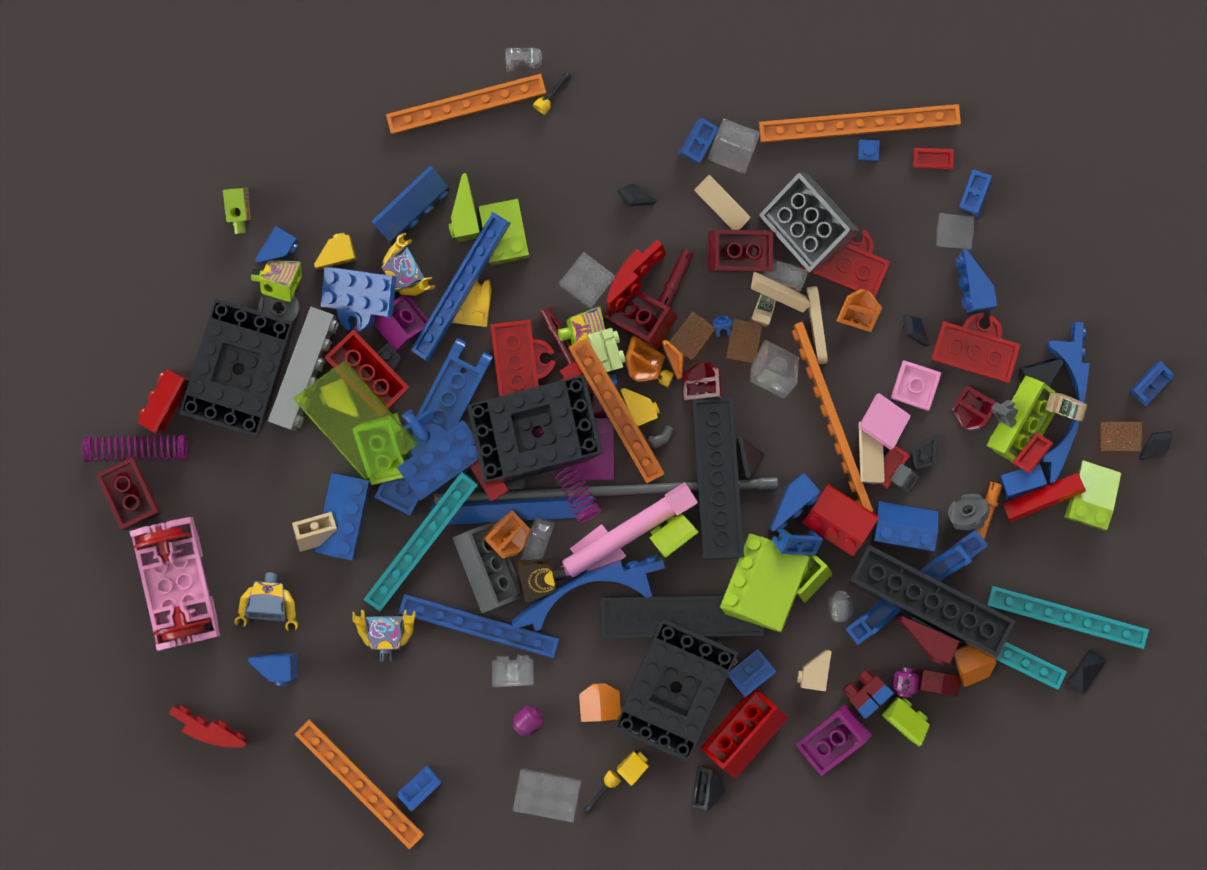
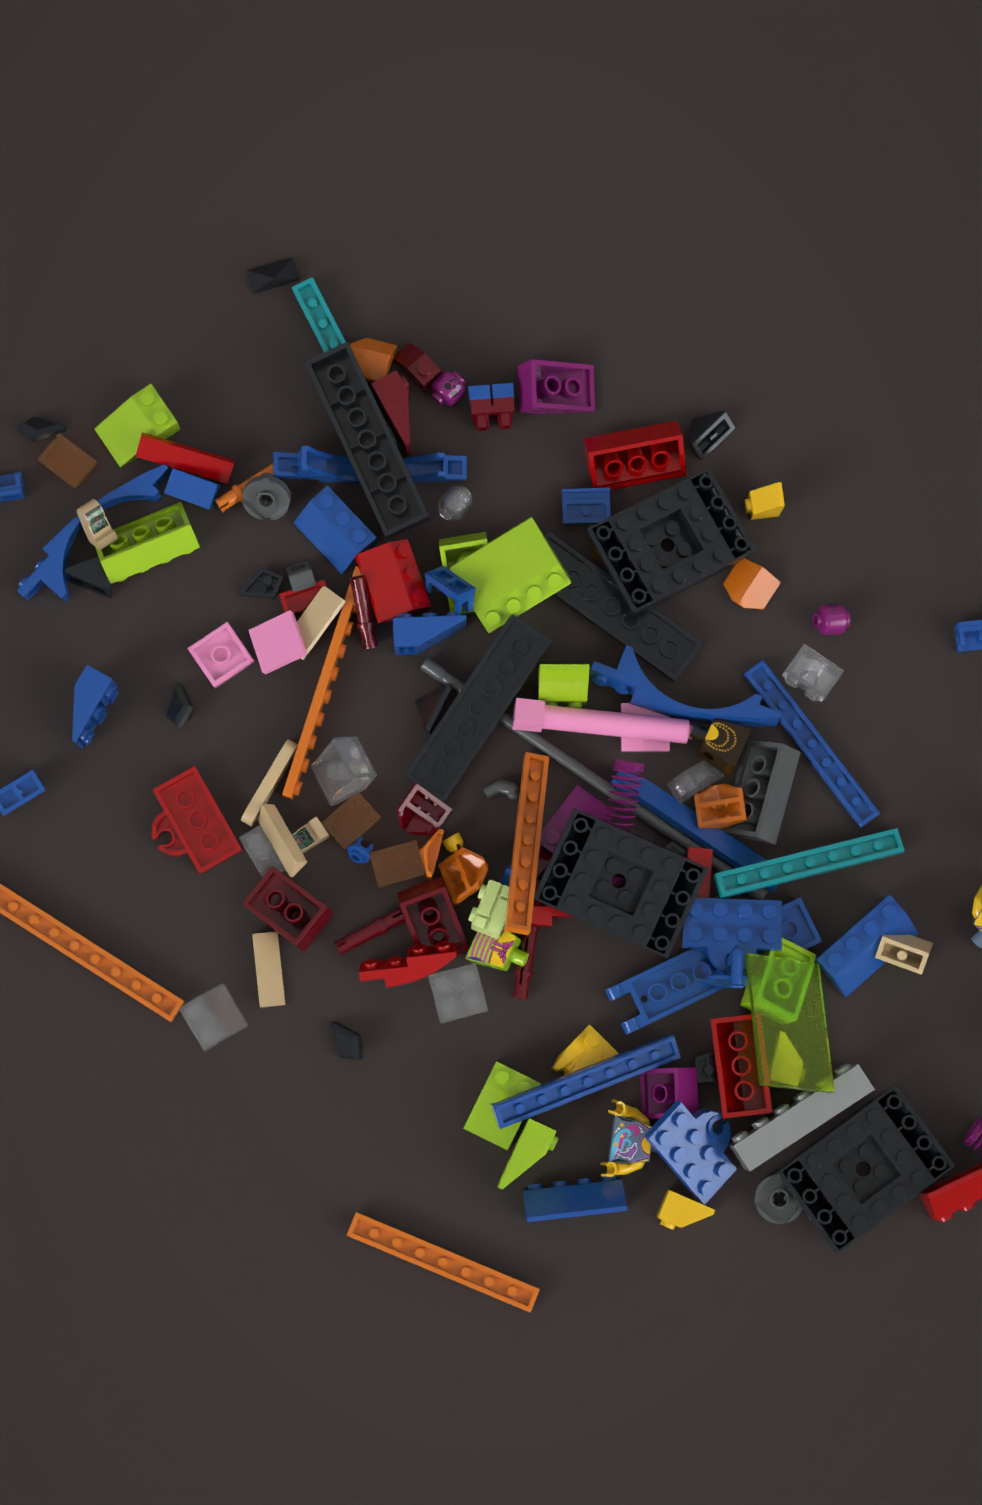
camera: 145 degrees left, 5 degrees down
(238, 199) = (743, 1340): lime torso -> none
(277, 247) = (735, 1261): blue slope -> none
(279, 279) = (759, 1226): lime torso -> none
(385, 632) = (906, 804): torso -> none
(518, 357) = (581, 969): red plate -> none
(522, 57) = (343, 1260): clear leg -> none
(543, 104) = (366, 1203): hinge -> none
(547, 795) = (865, 537): clear brick -> none
(611, 780) = (794, 506): hinge -> none
(640, 407) = (500, 832): yellow slope -> none
(698, 140) = (243, 1049): blue hinge -> none
(808, 222) = (200, 886): dark grey slope -> none
(815, 672) = (525, 461): tan slope -> none
(837, 479) = (362, 605): none -> dark red pin
(860, 310) = (218, 763): orange slope -> none
(868, 150) = (87, 913): blue plate -> none
(906, 720) = (475, 351): lime slope -> none
(933, 158) = (31, 857): red tile -> none
(955, 231) = (66, 772): clear piece -> none
(973, 409) = (184, 590): dark red slope -> none
(976, 348) = (136, 645): red plate -> none
(1005, 413) = (158, 561): dark grey tile -> none
(1032, 453) = (162, 506): red tile -> none
(1067, 617) = (251, 336): teal plate -> none

